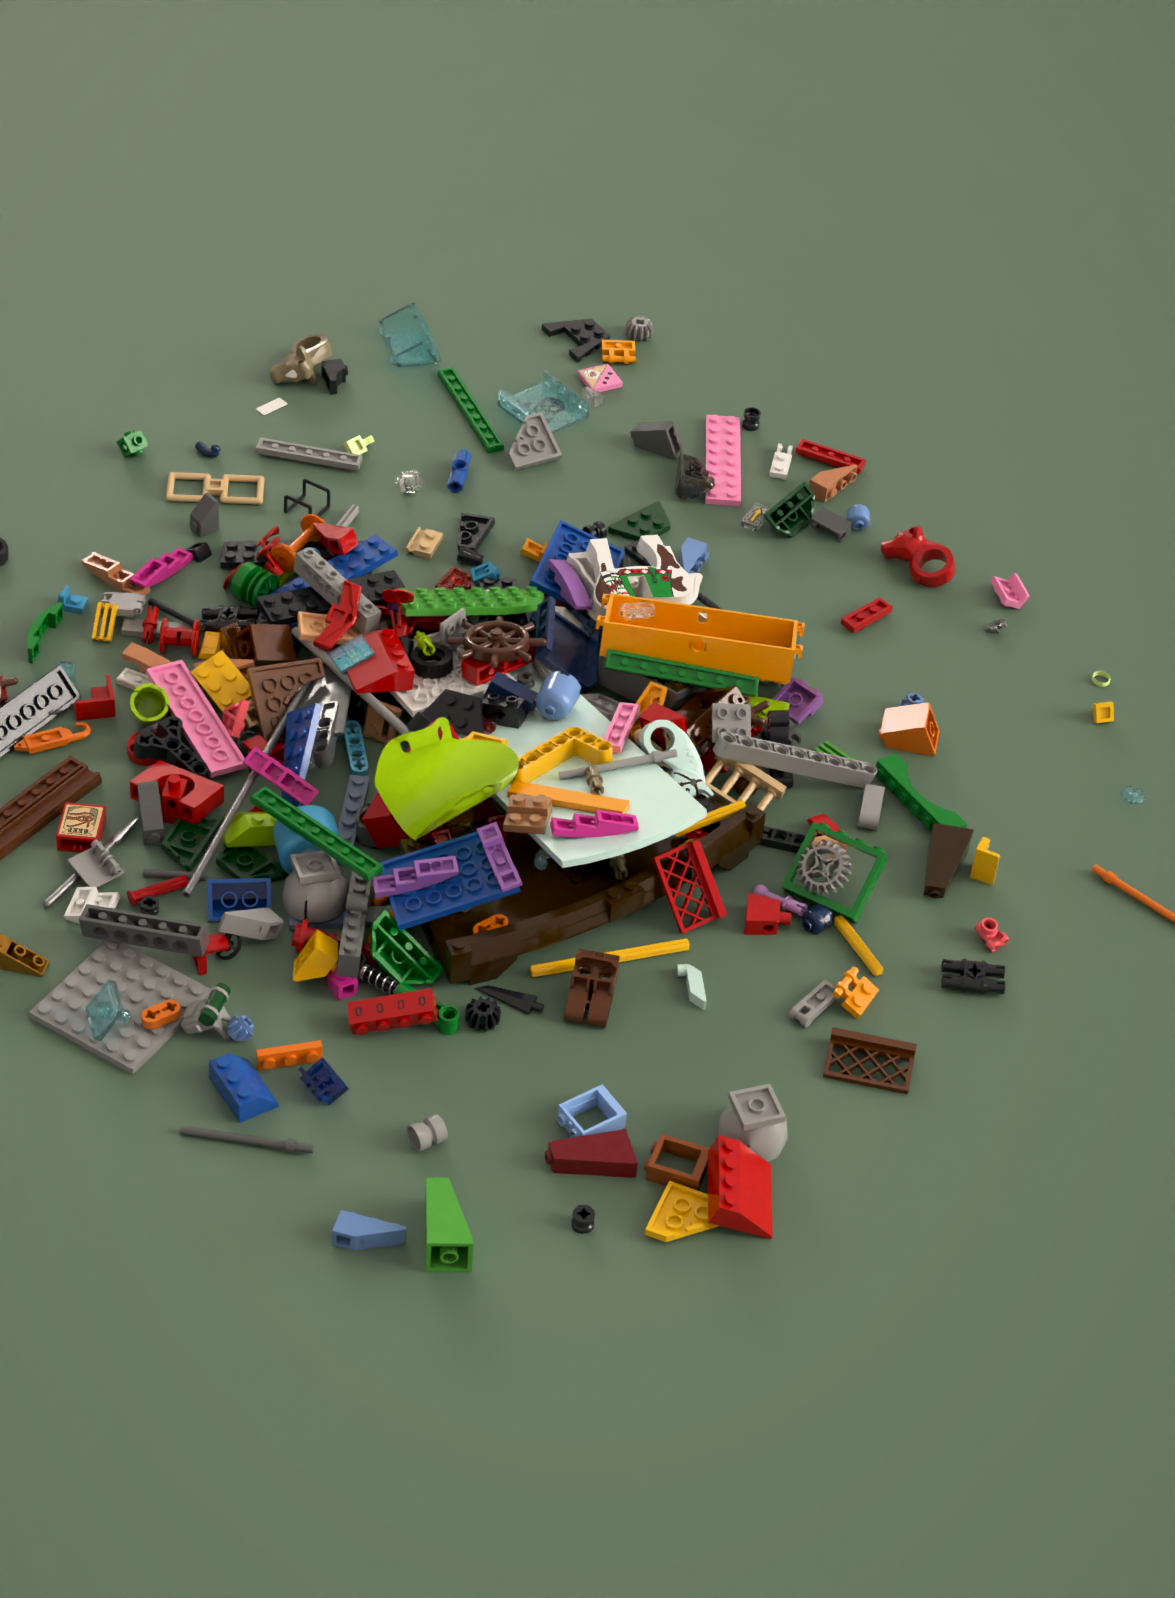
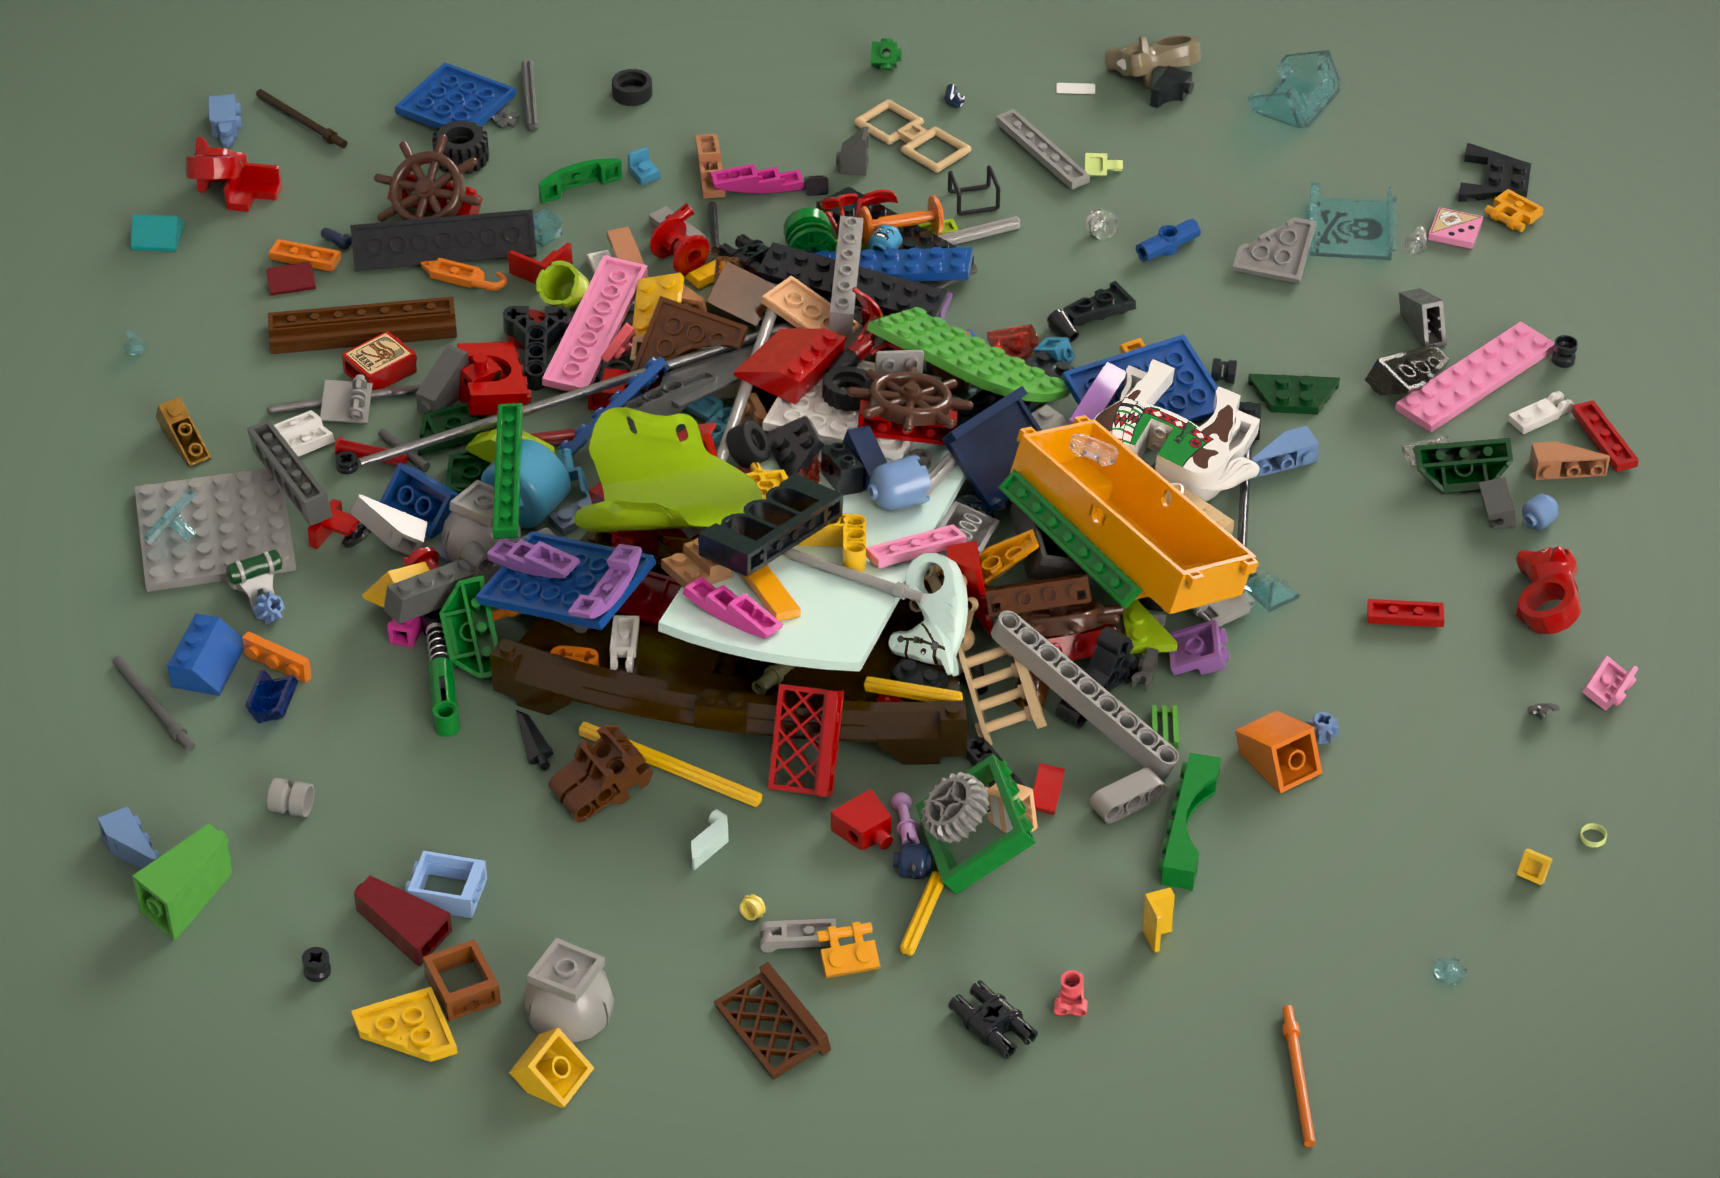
camera: 50 degrees right, 0 degrees up
(106, 606) = (635, 196): yellow tile -> none
(128, 603) = (675, 191): light grey plate -> none
(160, 1014) = (218, 552): orange beam -> none
(281, 776) = (573, 411): dark pink slope -> none
(335, 538) = (925, 230): red slope -> none
(340, 617) = (809, 297): red plate -> none
(351, 653) = (778, 337): clear light blue piece -> none
(392, 1011) = (399, 675): red brick -> none
(424, 543) = (1040, 290): tan plate -> none
(424, 643) = (851, 364): lime axle -> none
(470, 410) = (1270, 190): green tile -> none
(482, 1014) = (482, 733): black gear -> none
(510, 905) = (624, 641): none -> white hinge
(547, 761) = (771, 525): none -> black fence
(594, 780) = (805, 574): dark tan pin -> none
(639, 328) = (1569, 198): light grey gear -> none
(730, 718) = (1038, 605): light grey hinge -> none
(739, 1188) = (473, 1037): red slope -> none
(771, 1010) = (752, 907): none -> light yellow plate
(796, 1175) = (552, 1068): none -> yellow slope
(945, 855) = (1118, 890): dark brown slope -> none

